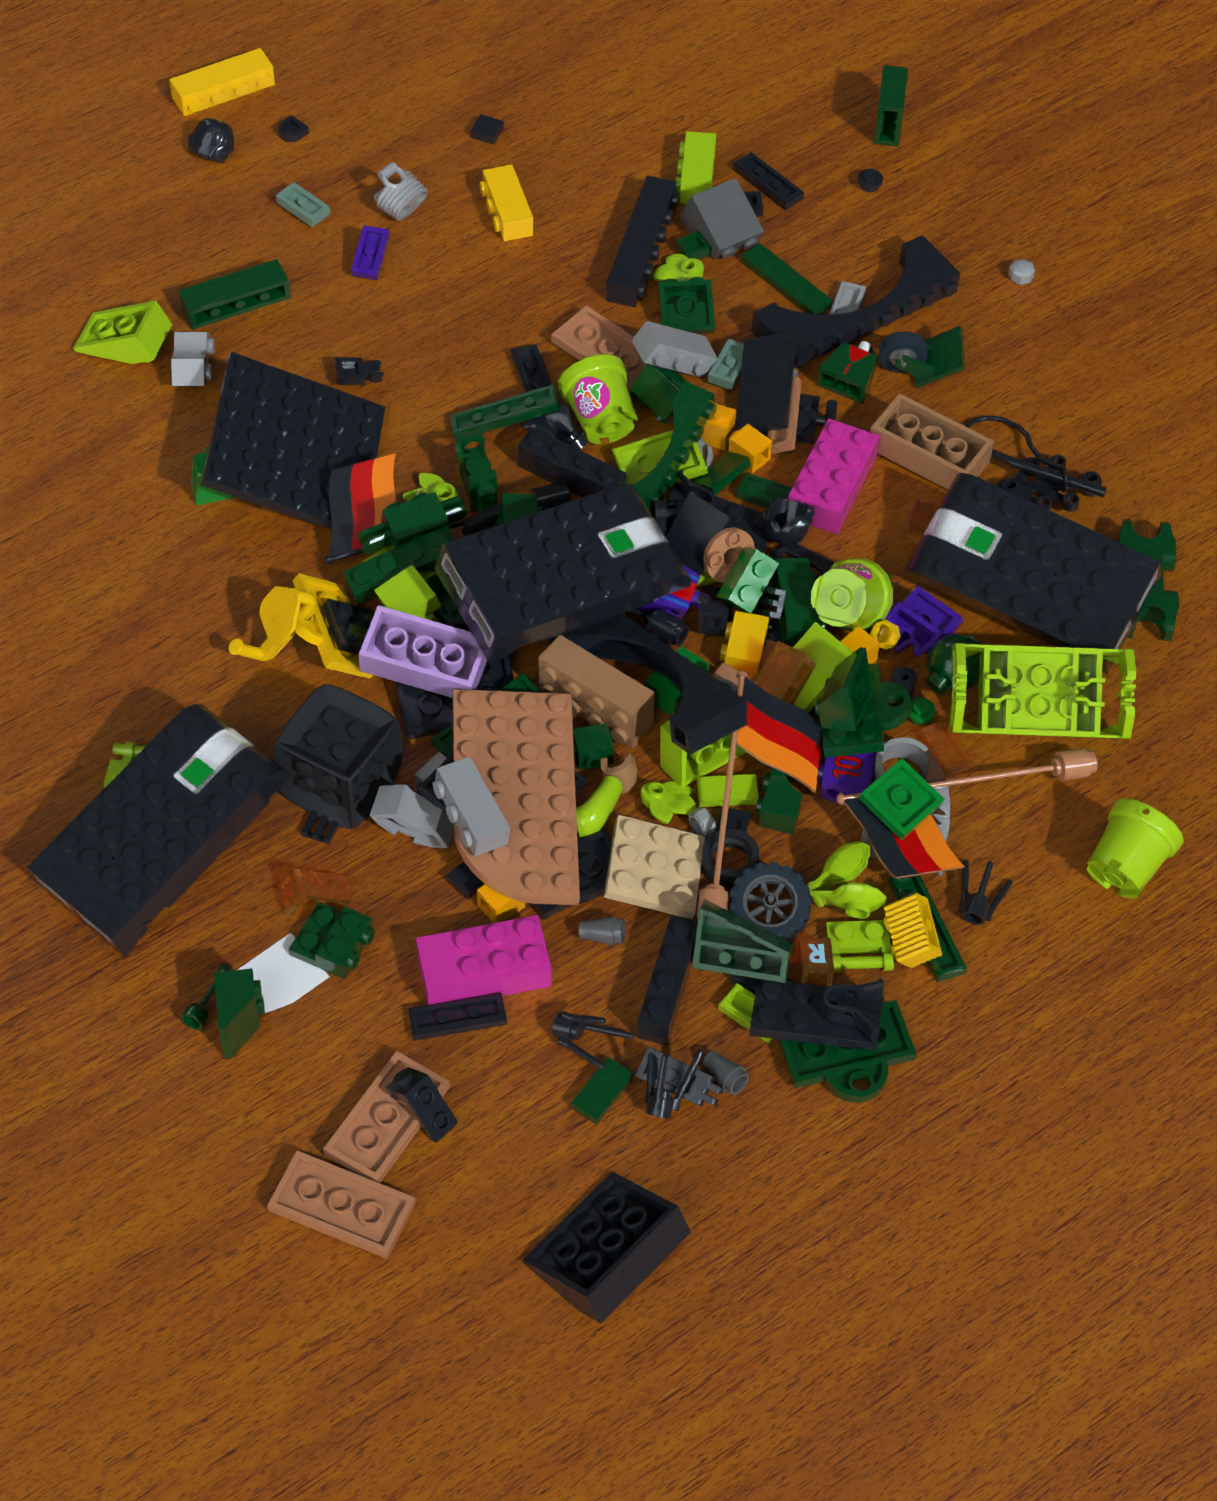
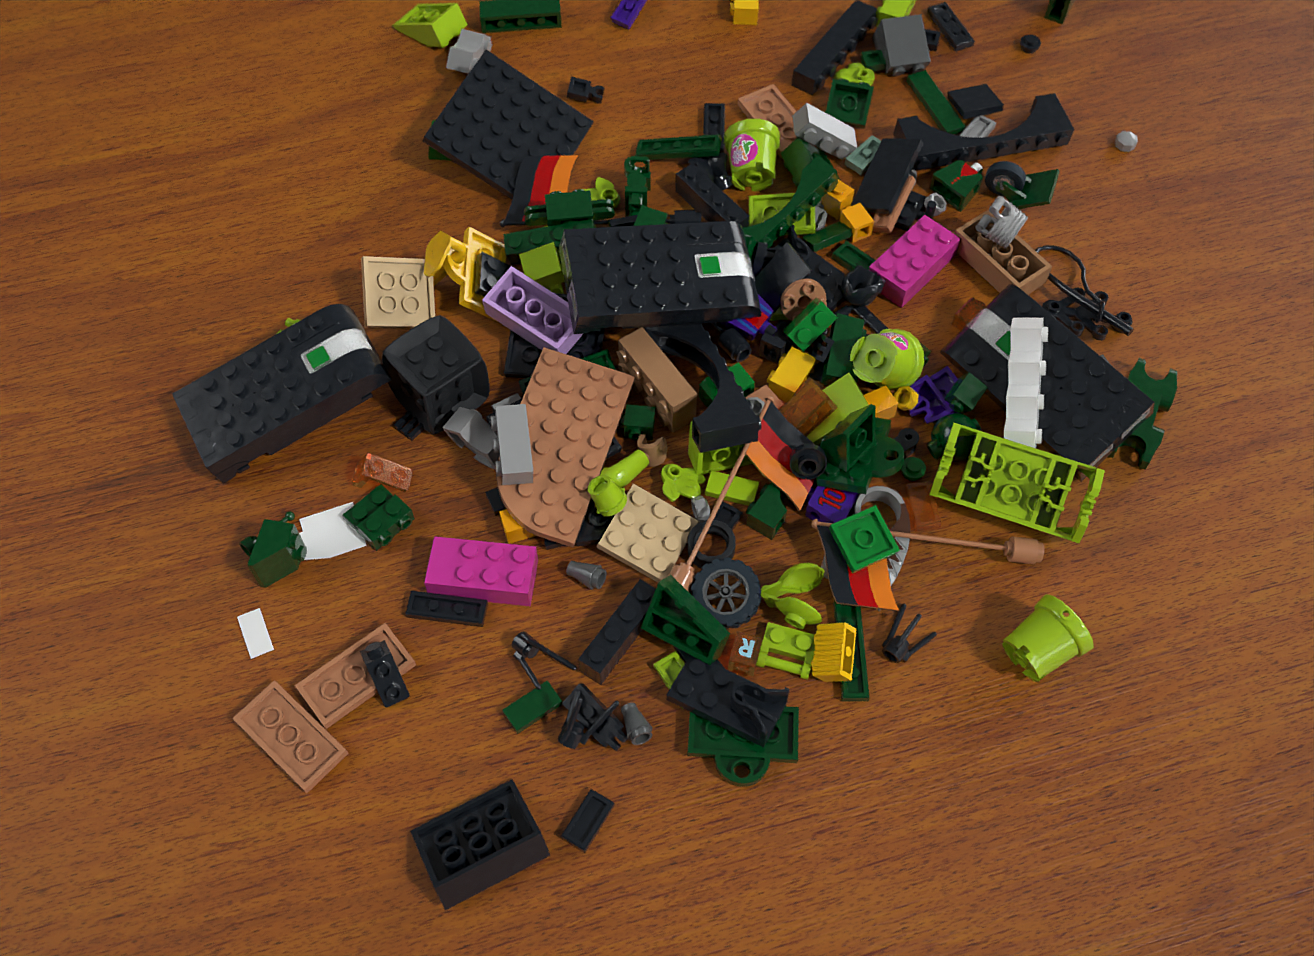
camera: 20 degrees right, 5 degrees up
(244, 1110) = (255, 633): none -> white sticker
(245, 675) = (396, 292): none -> tan plate
(596, 836) = (607, 496): none -> lime piece
(714, 1188) = (587, 820): none -> black tile
(809, 732) = (808, 461): none -> black plate
(832, 266) = (975, 101): none -> black tile
(832, 395) = (941, 204): none -> light grey tile
(929, 404) = (1005, 224): none -> light grey piece
(951, 610) = (965, 393): none -> dark green brick
(1013, 575) = (1024, 380): none -> white brick

